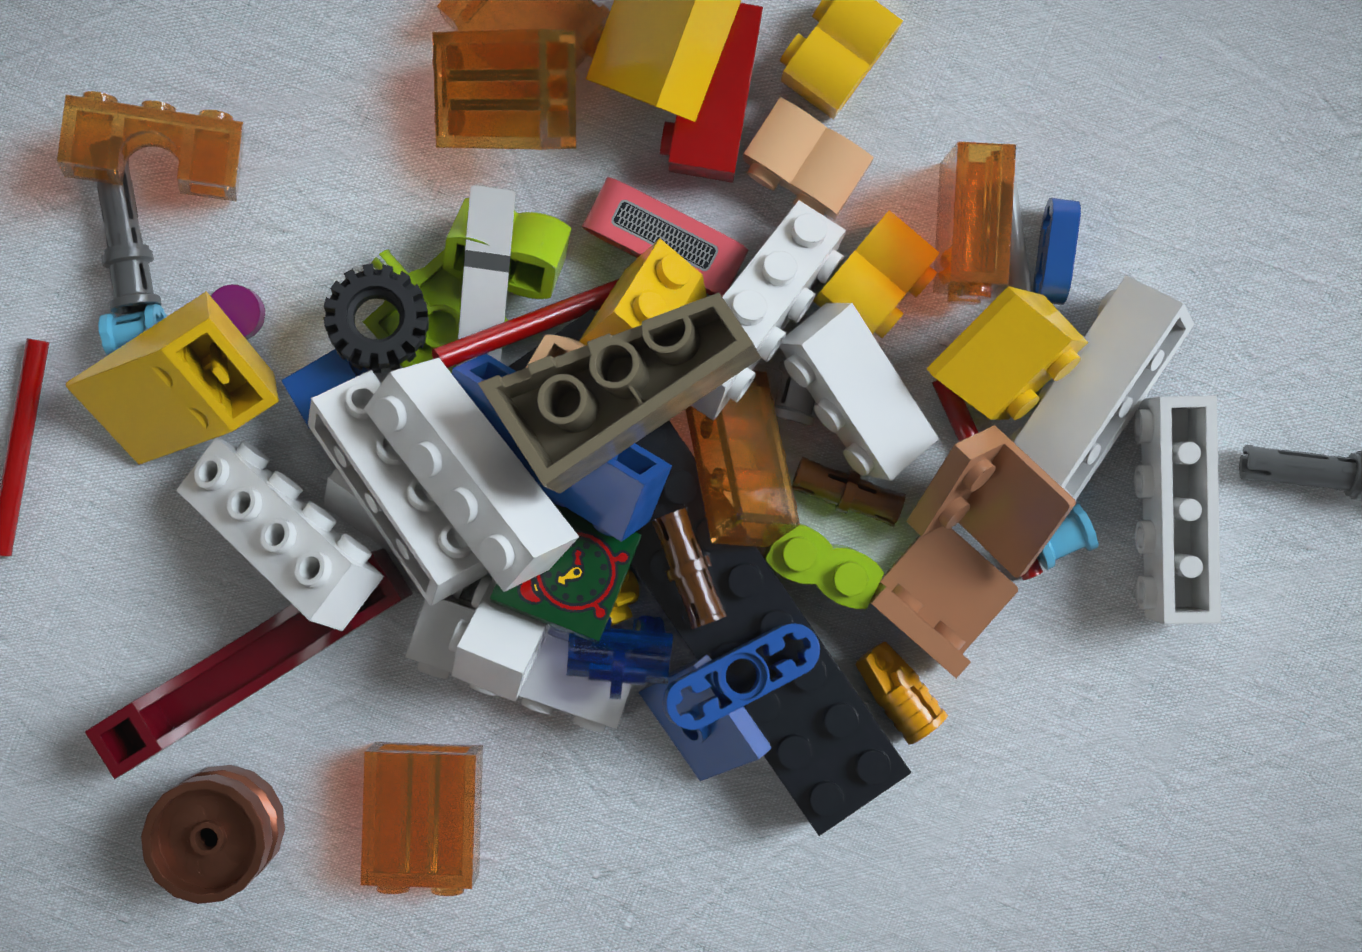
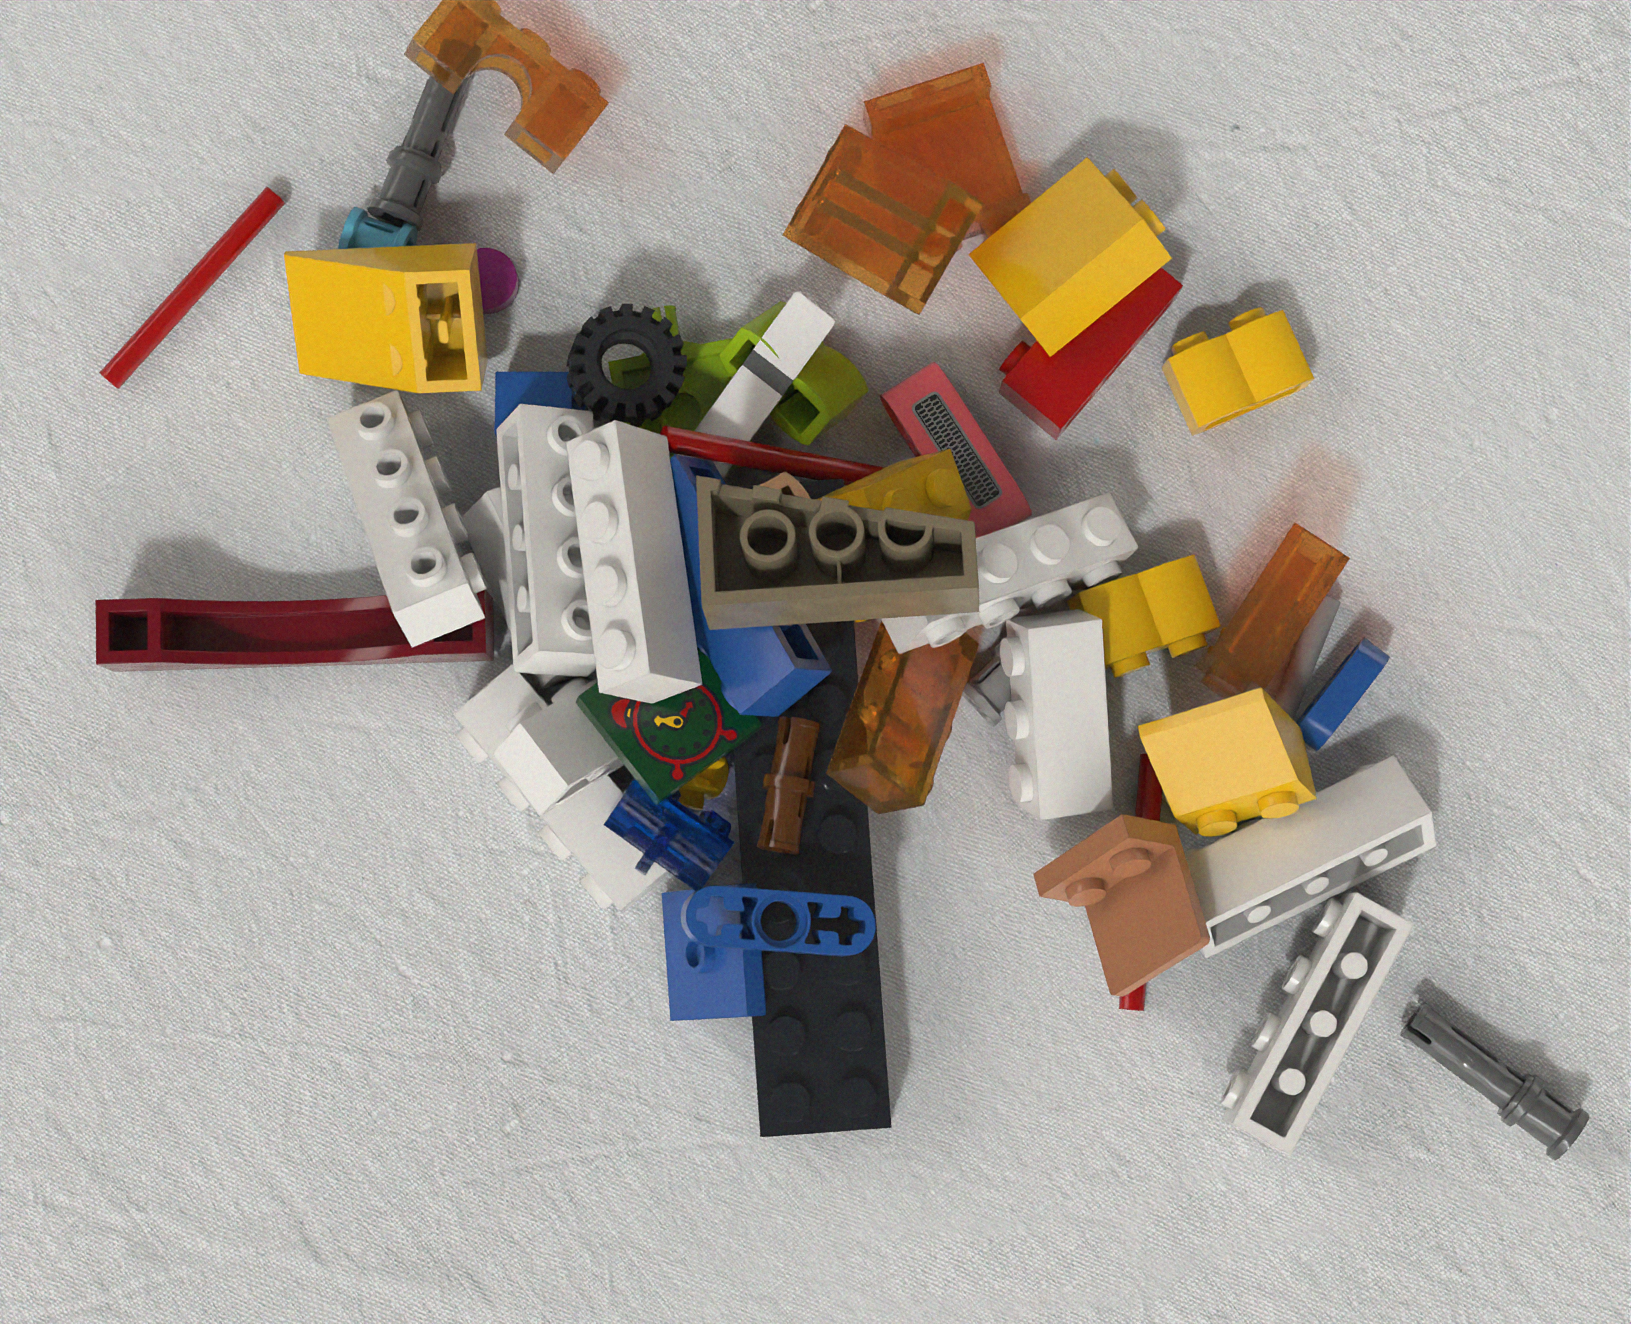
camera: 30 degrees right, 5 degrees down
(213, 834) = (123, 800): copper wheel -> none
(421, 817) = (369, 889): clear orange brick -> none
(806, 159) = (1141, 458): light nougat brick -> none
(835, 569) = (934, 884): lime brick -> none
(848, 491) = (992, 813): reddish brown pin -> none
(900, 693) = (926, 1047): light orange hinge -> none
(943, 596) = (1027, 973): nougat bracket -> none
(1073, 534) = (1186, 986): medium azure bush -> none

